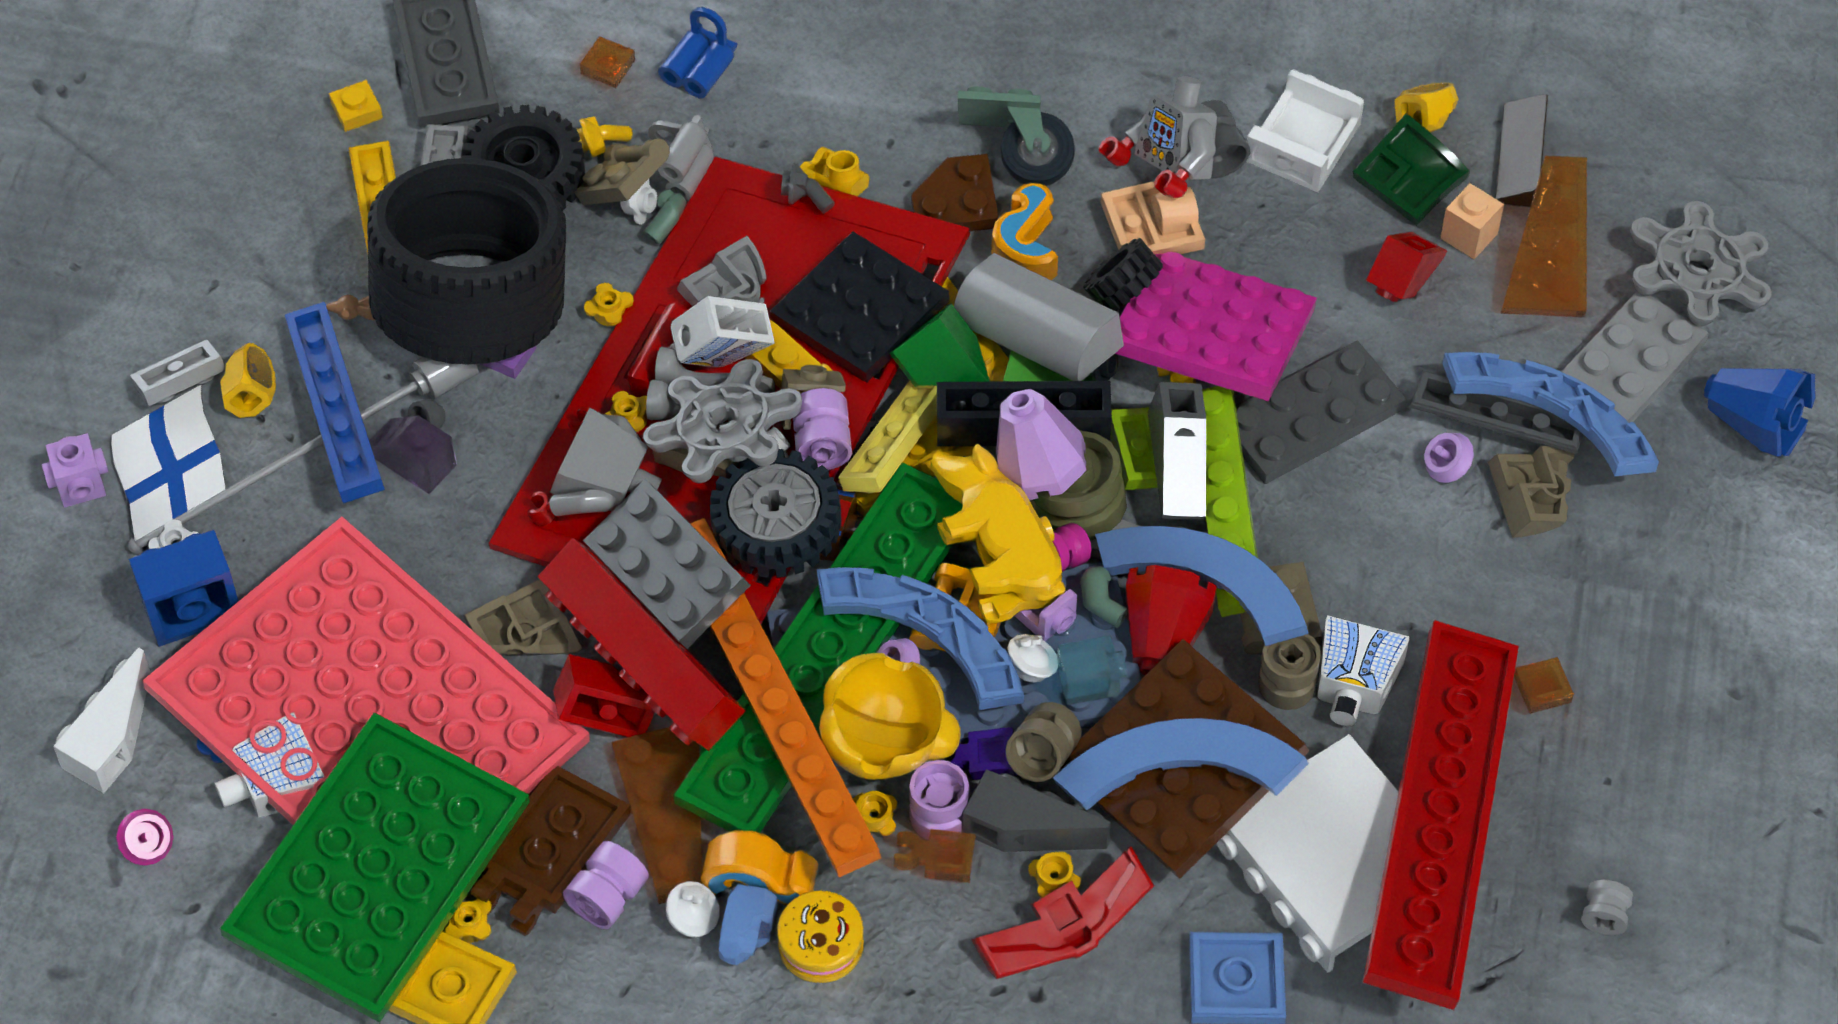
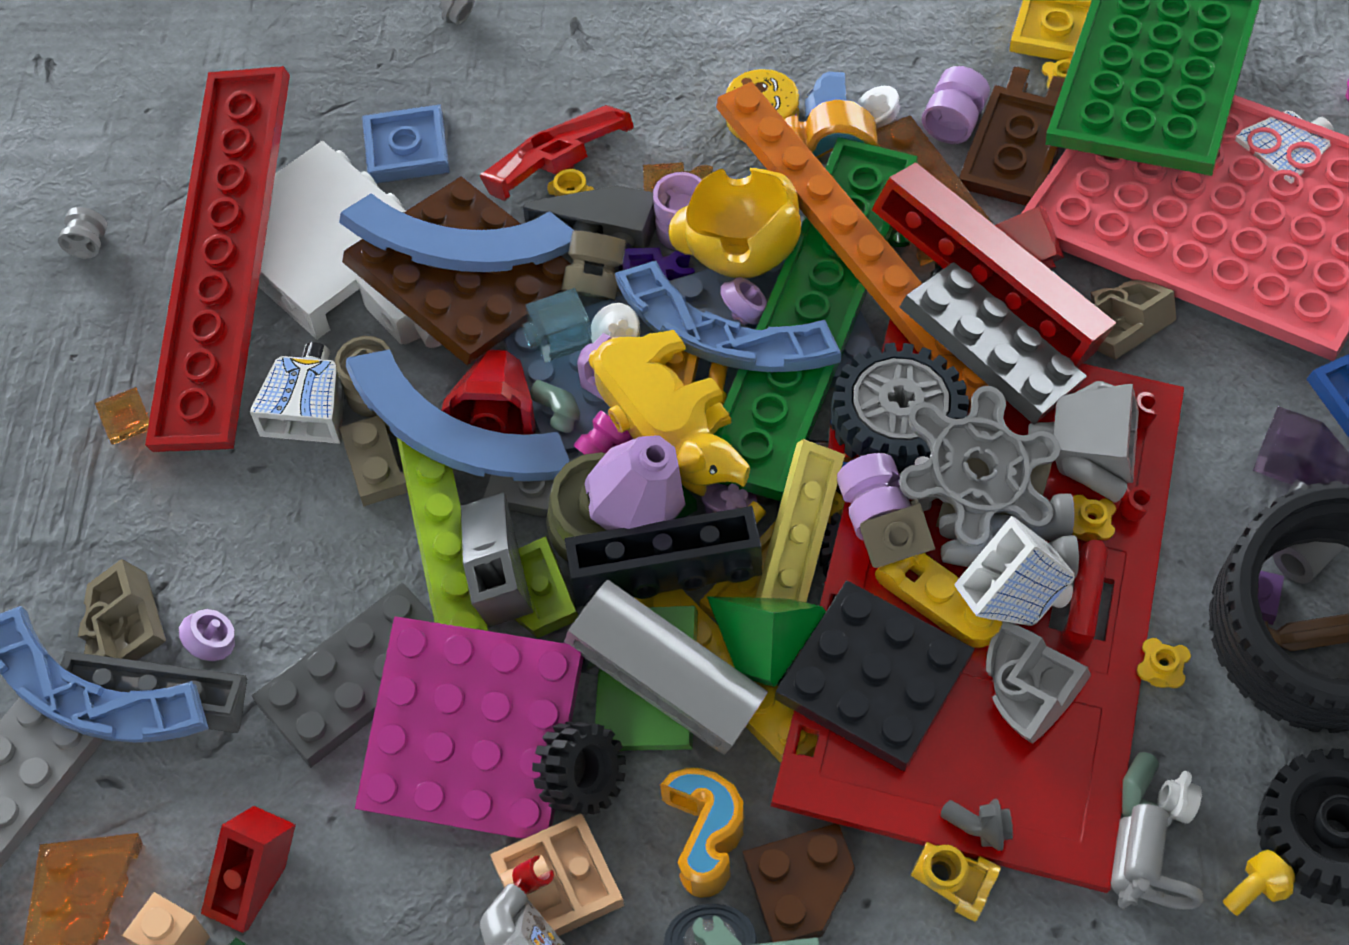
camera: 175 degrees right, 0 degrees up
(617, 177) = (1220, 802): dark tan plate -> none

